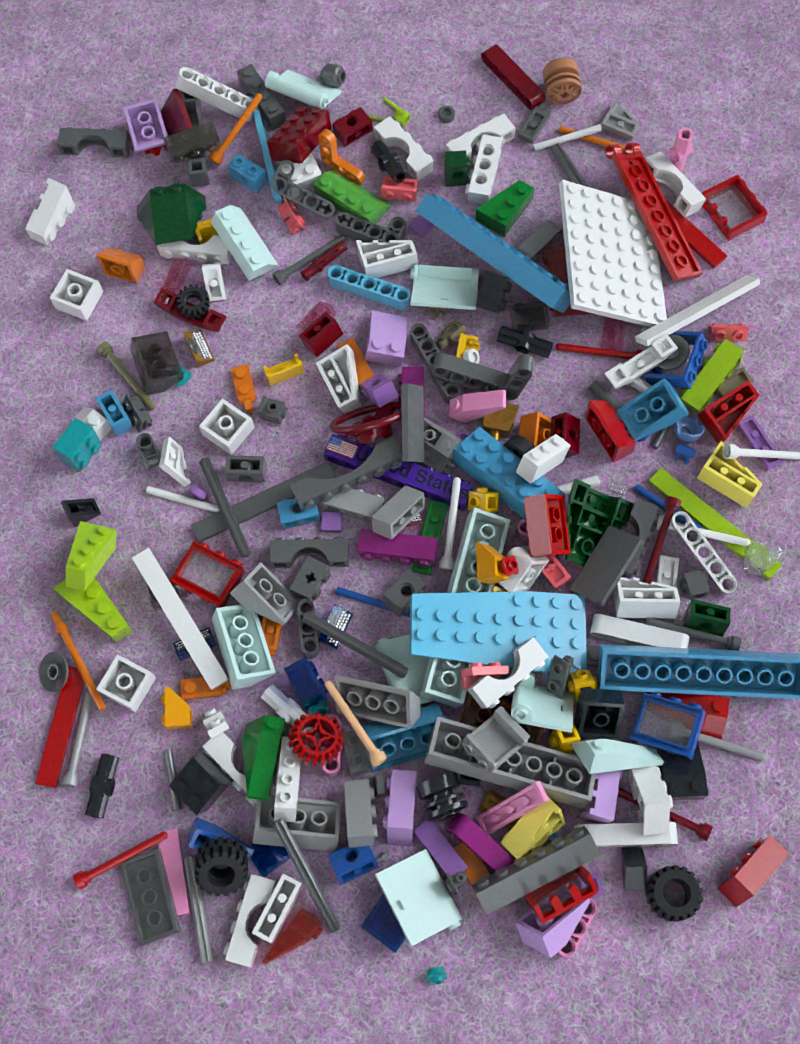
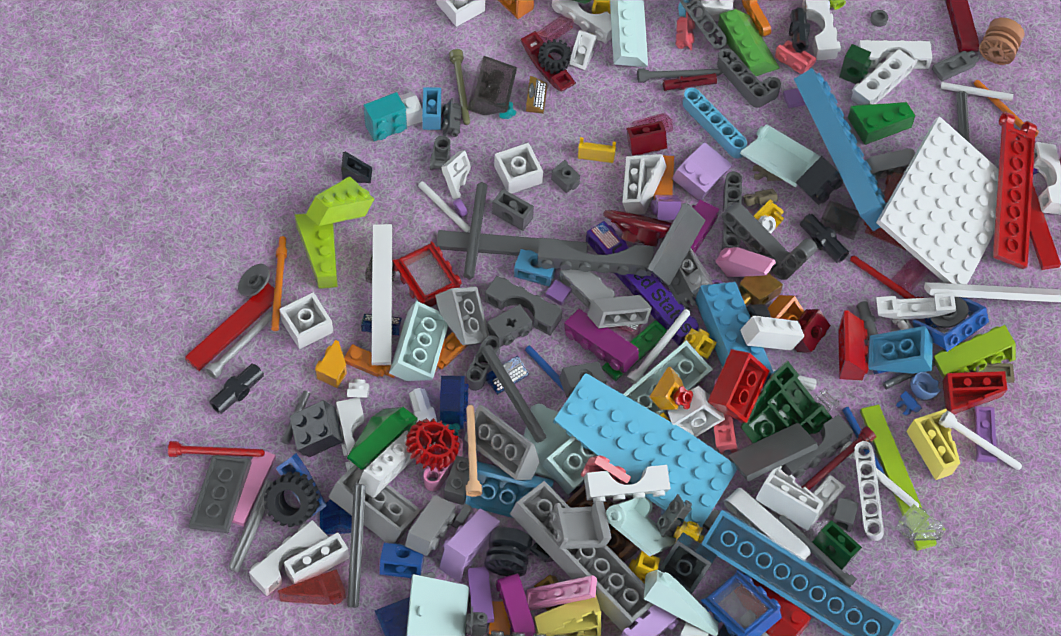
camera: 25 degrees right, 10 degrees down
(244, 386) = (554, 146): orange hinge -> none
(386, 258) = (744, 106): white wedge -> none
(620, 122) = (1036, 103): light grey wing -> none
(733, 332) = (1018, 328): coral hinge -> none

